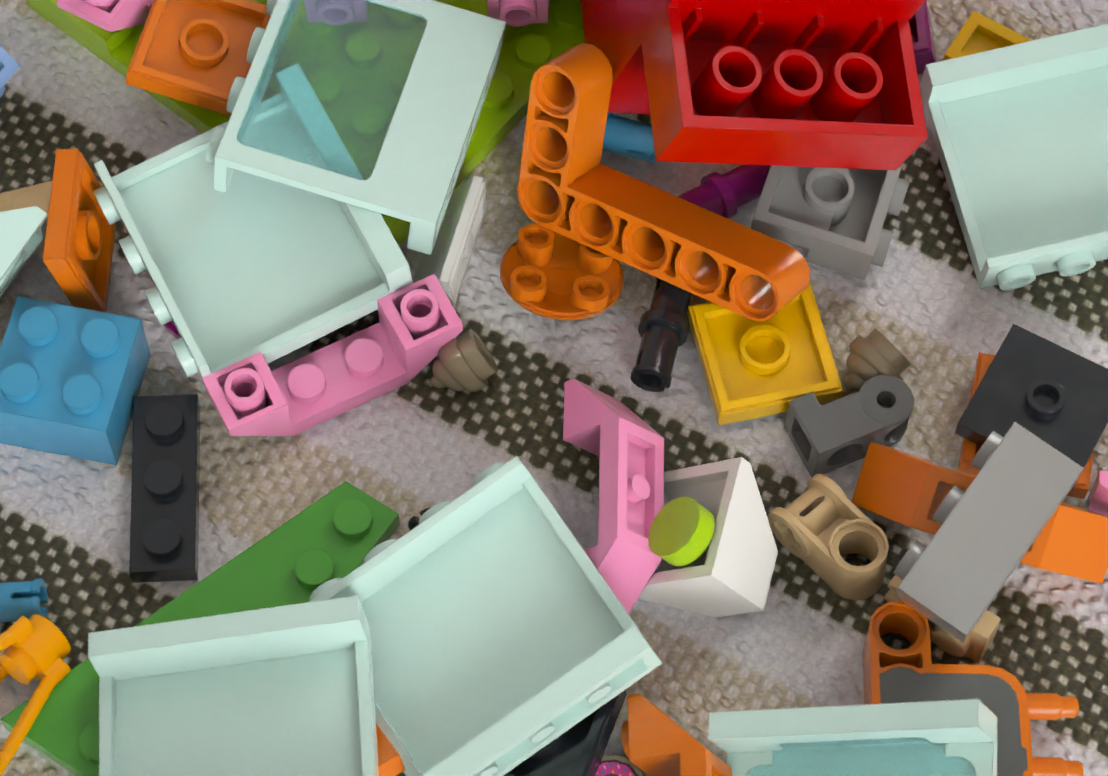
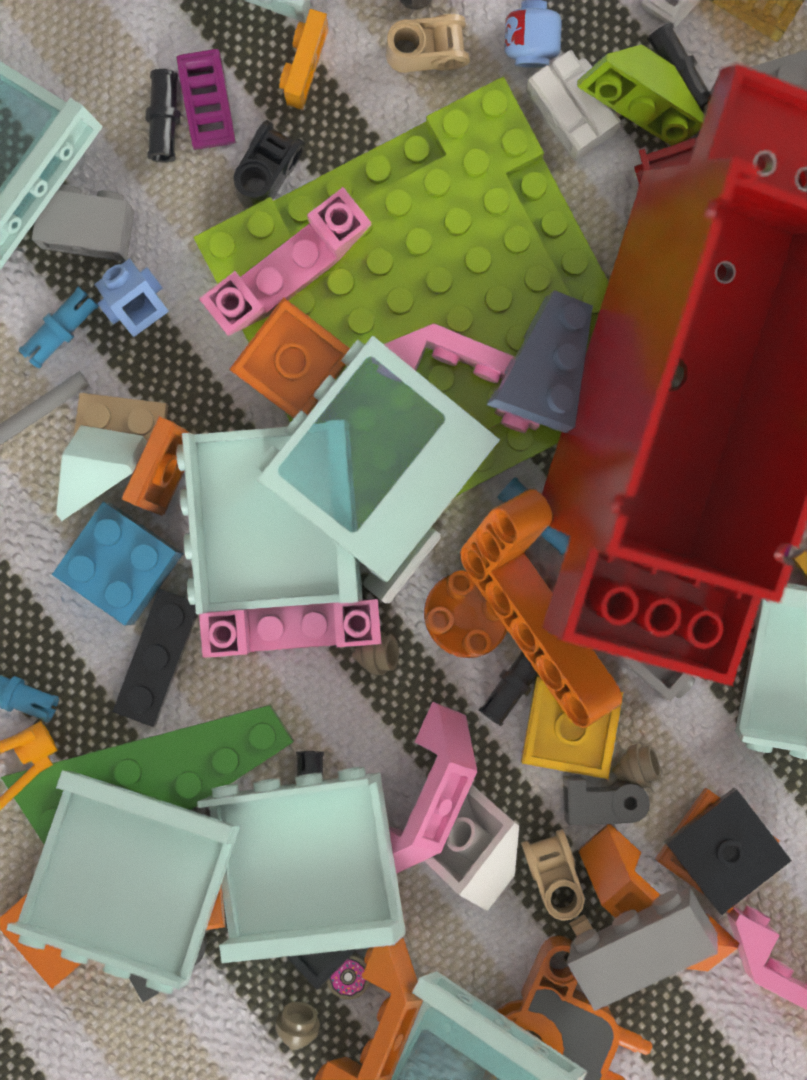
camera: 20 degrees right, 25 degrees up
(681, 531) = (456, 851): lime tile -> none

